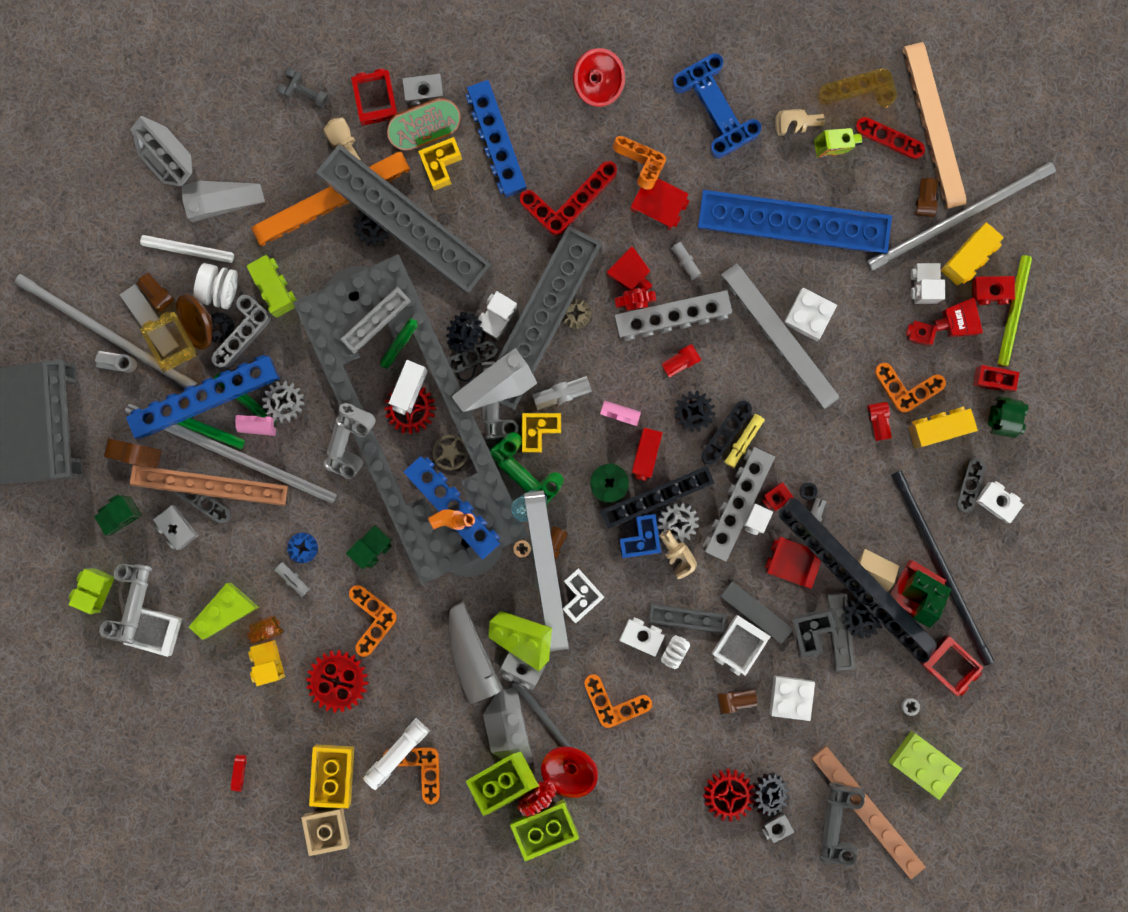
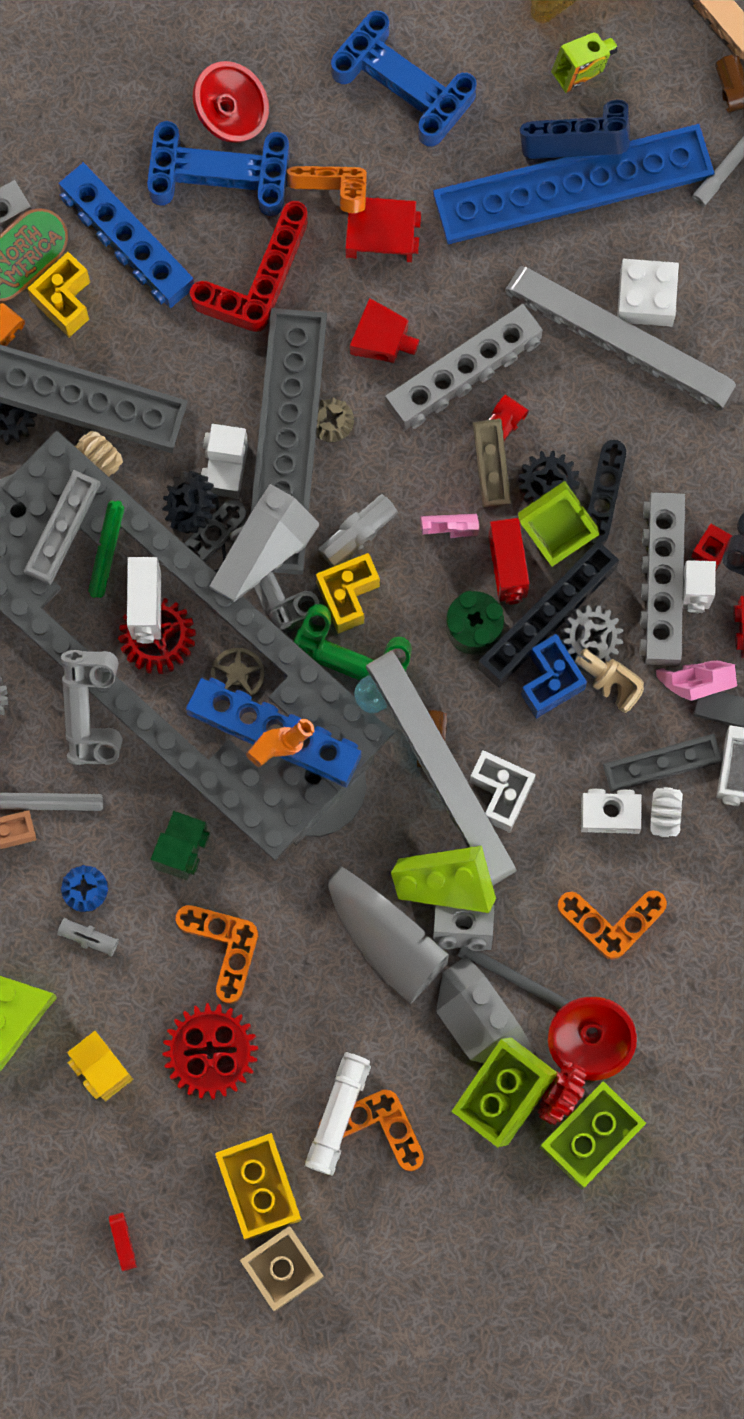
camera: 25 degrees left, 10 degrees down
(264, 629) = (78, 1020): clear orange hips -> none
(420, 277) = (100, 452): none -> tan gear
(526, 544) = (389, 770): light nougat bush -> none
(573, 117) = (218, 168): none -> blue beam
(635, 299) = (404, 364): red gear -> none
(663, 385) = (491, 462): none -> dark tan tile
(686, 261) = (450, 291): light grey pin -> none
(687, 444) = (558, 523): none -> lime piece
(732, 577) = (699, 679): none -> bright pink slope
(743, 442) = (632, 504): light yellow pin -> none
(800, 119) = (521, 49): tan piece -> none
(812, 193) = (579, 136): none -> dark blue beam
(891, 134) = (651, 25): red beam -> none

